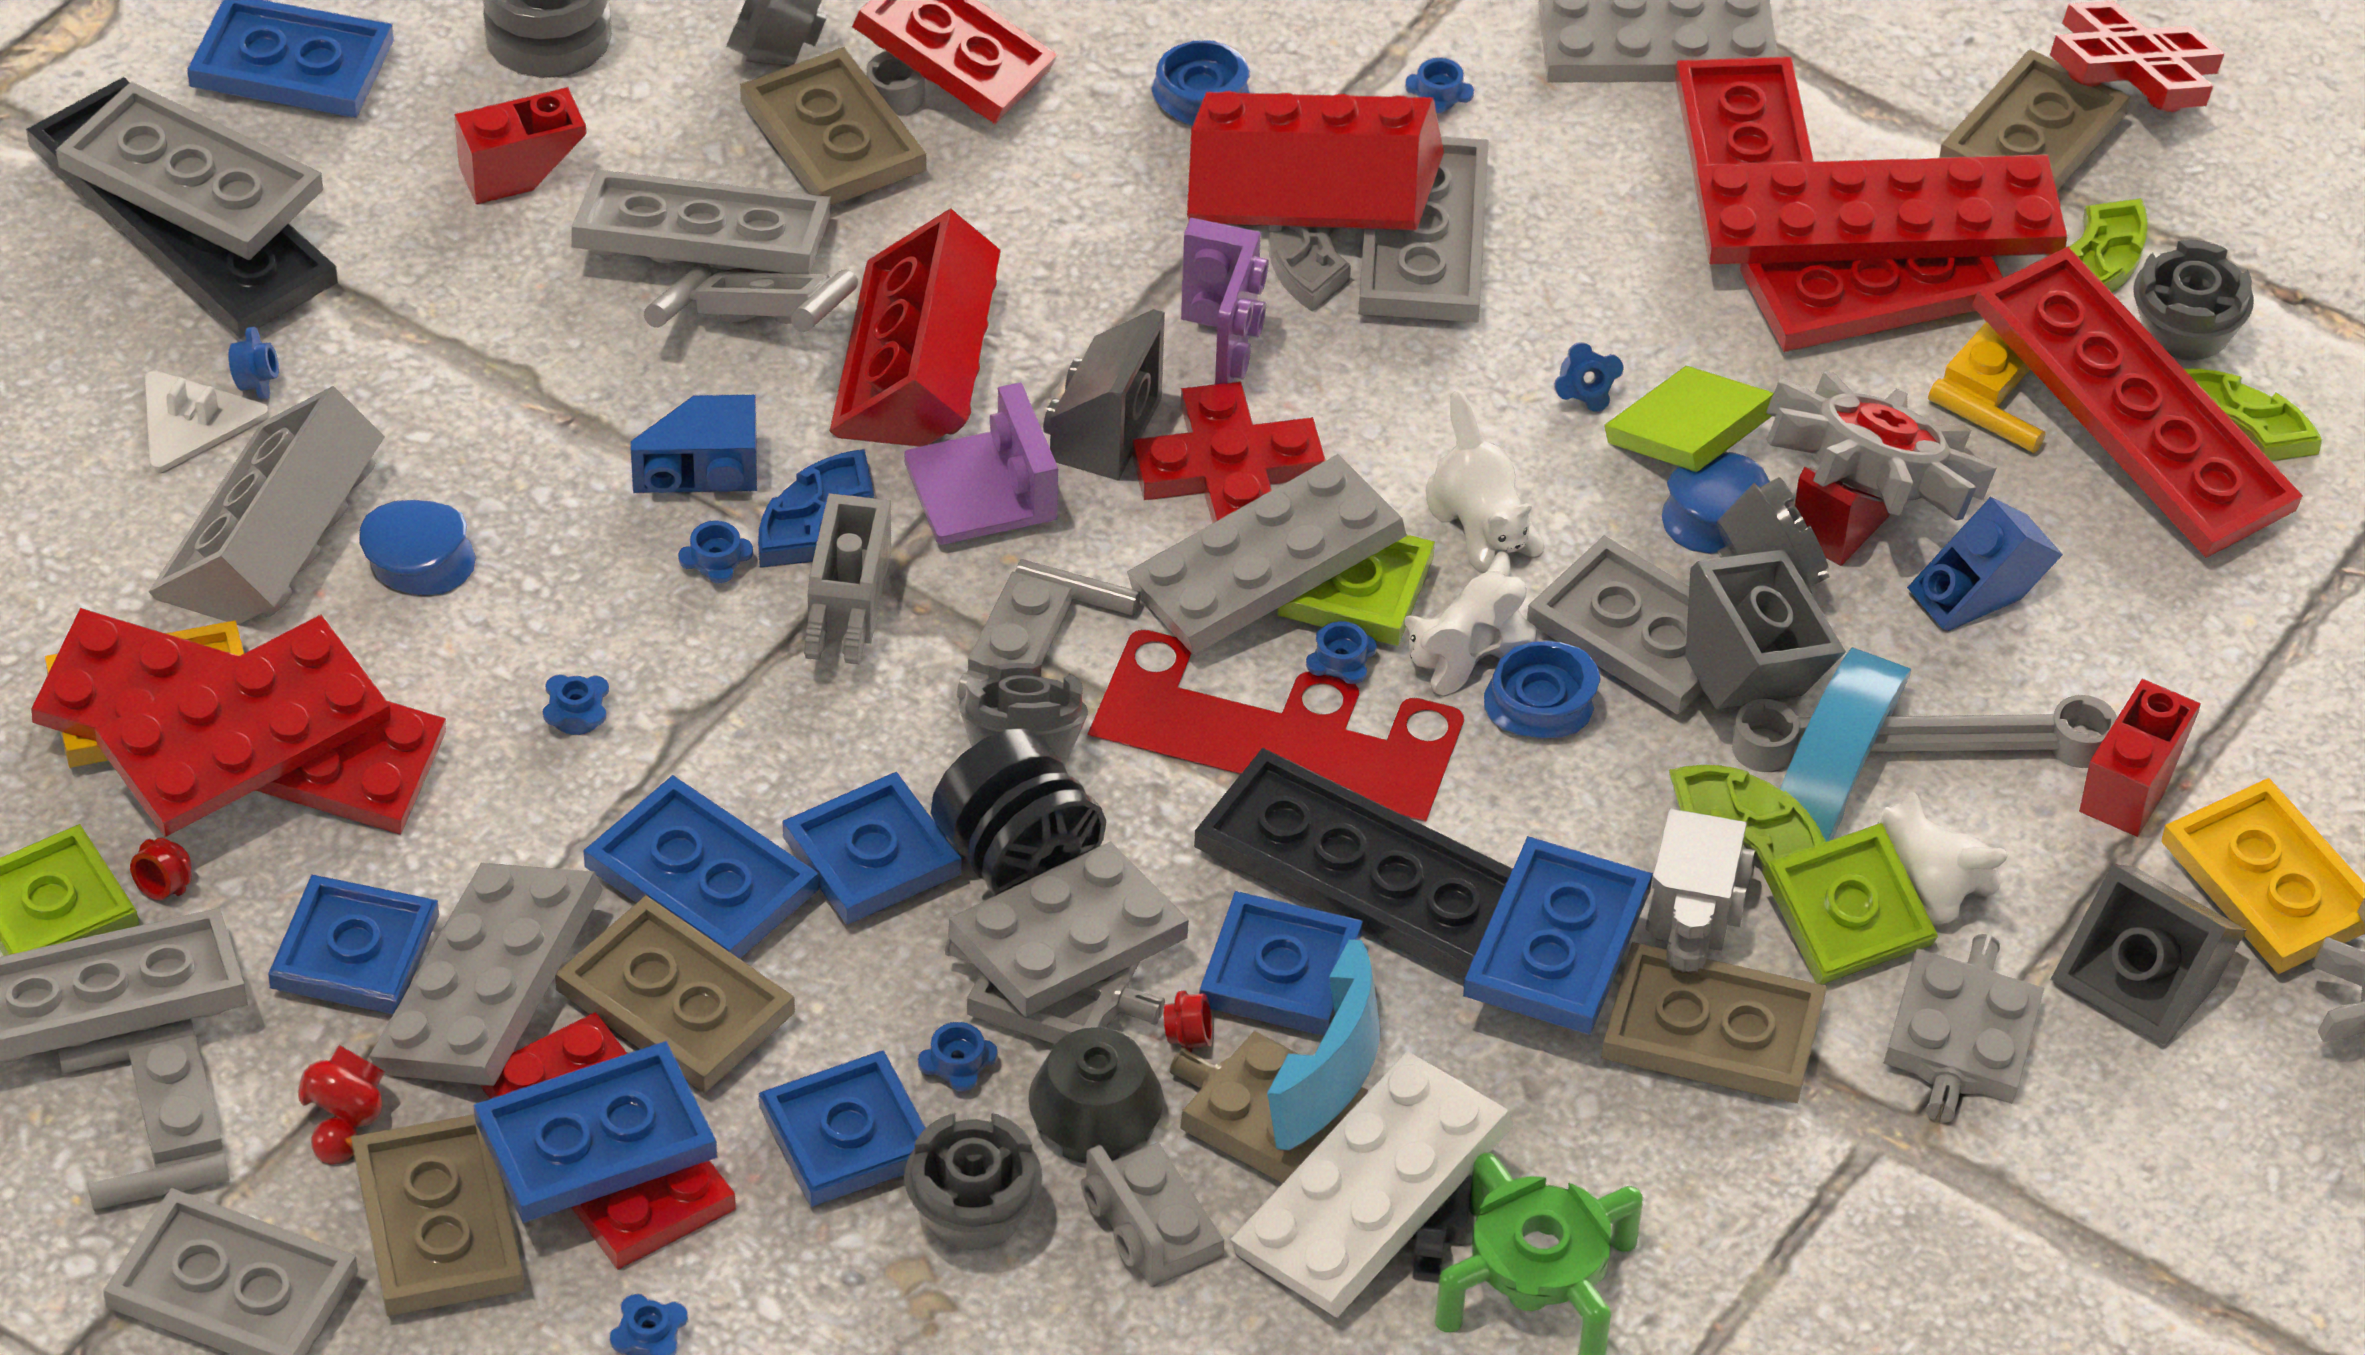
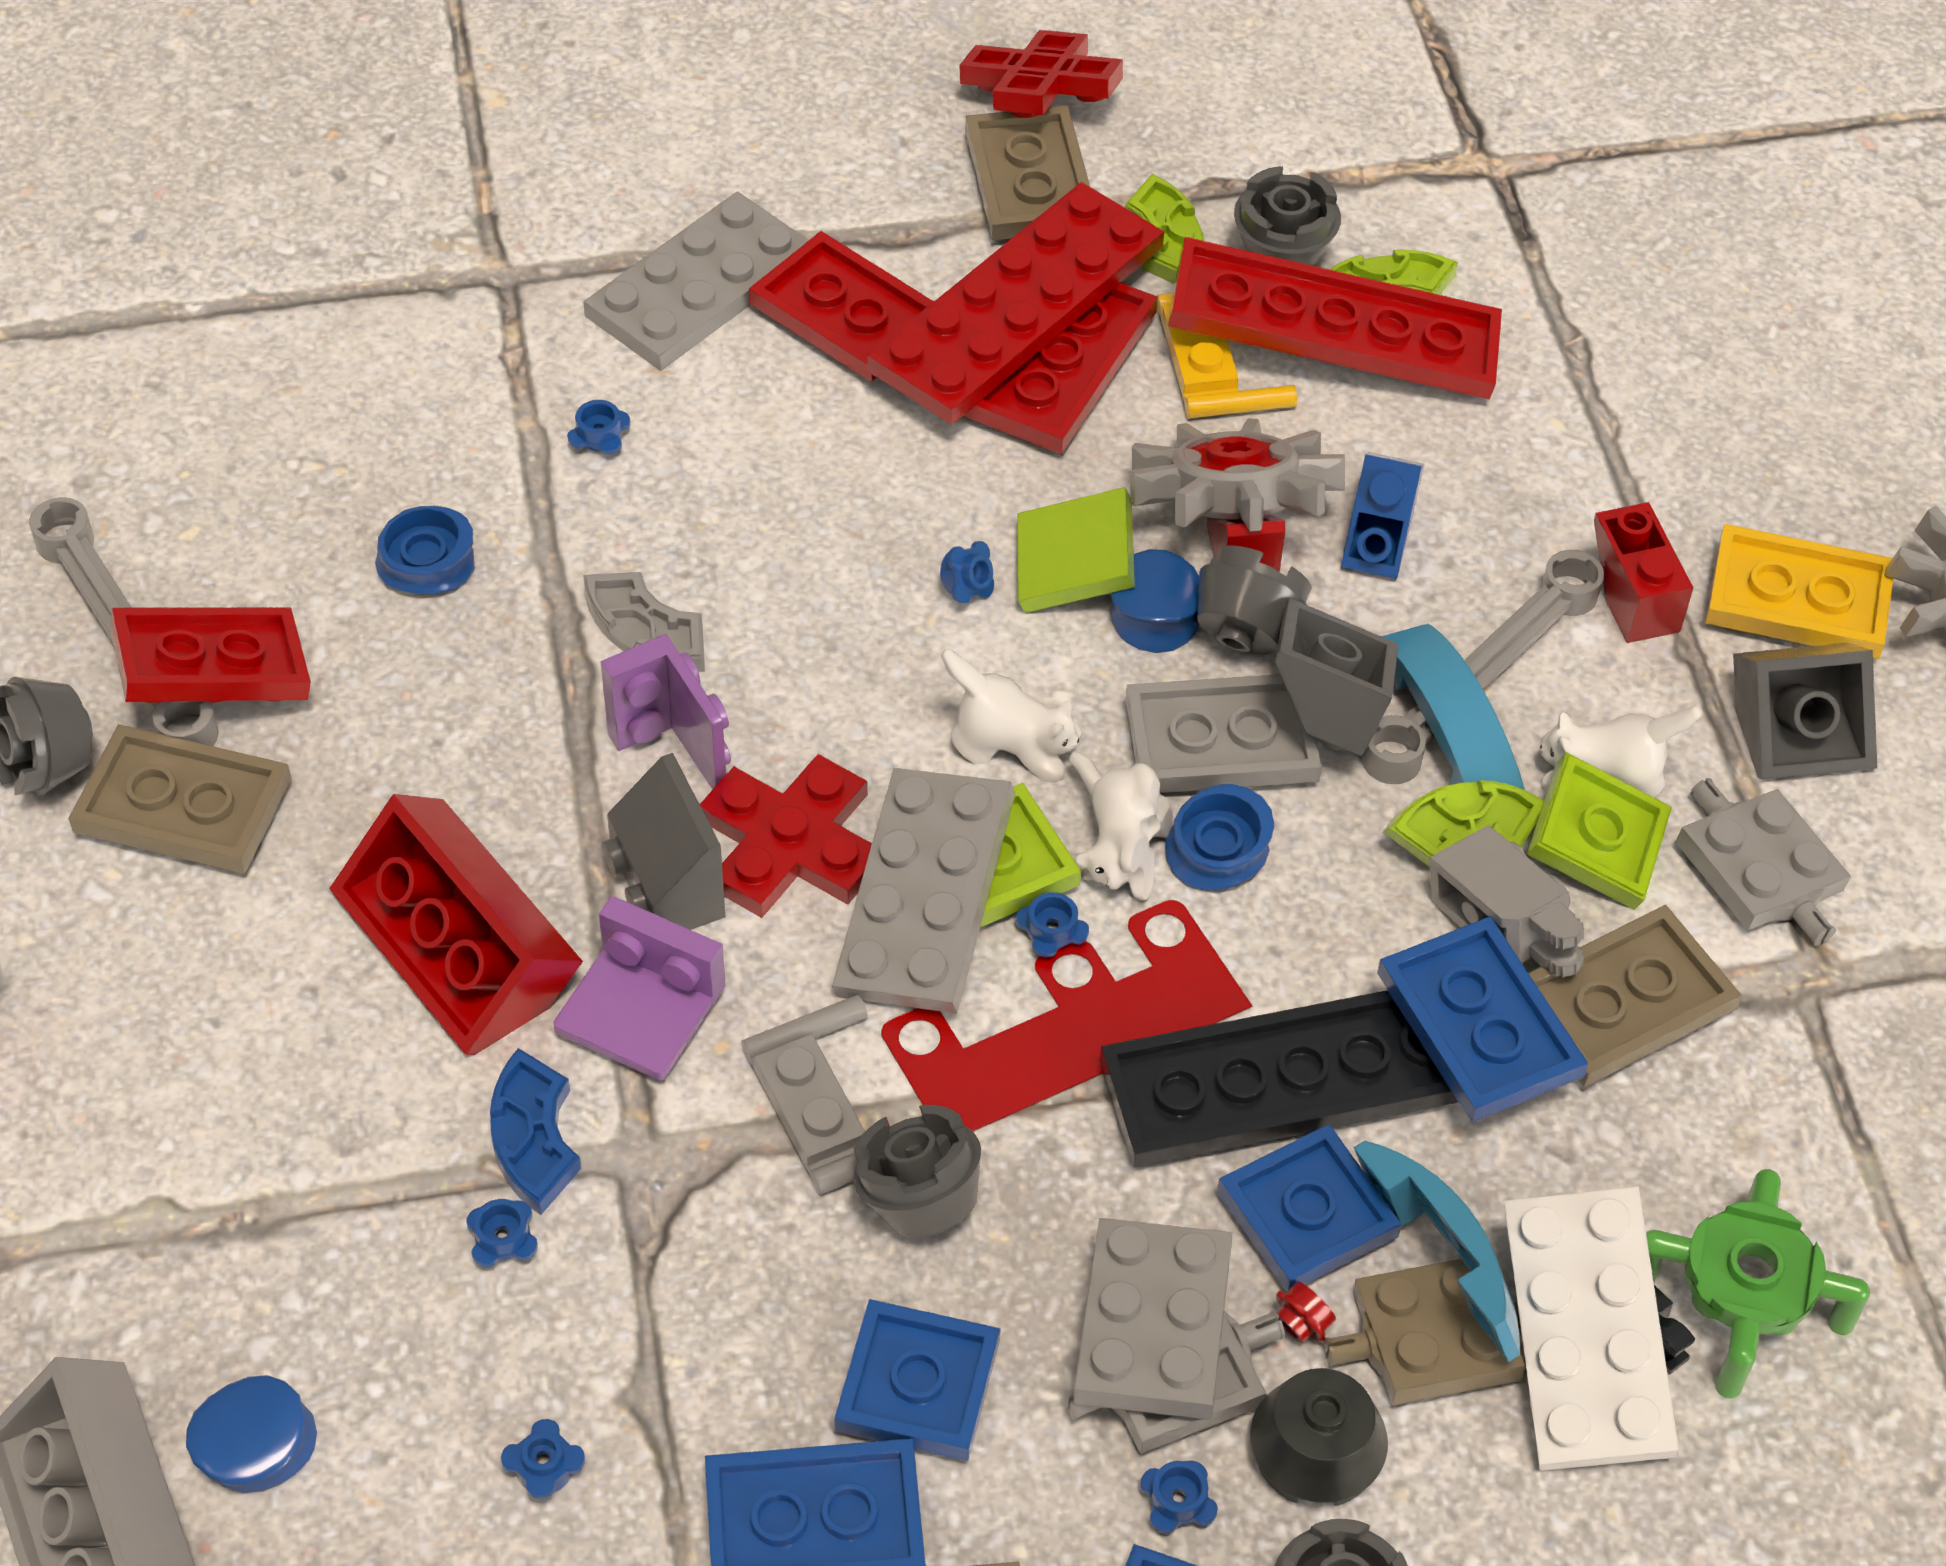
camera: 45 degrees left, 5 degrees up
(699, 447) = (396, 1149): blue slope -> none
(700, 223) = (171, 960): light grey plate -> none
(743, 295) = (294, 983): light grey plate -> none
(848, 574) = (648, 1167): light grey hinge -> none
(1015, 809) = (1020, 1257): black wheel -> none
(1150, 1212) = (1459, 1494): light grey bracket -> none
(1313, 160) = (600, 551): red slope -> none
(1439, 265) = (719, 544): light grey plate -> none

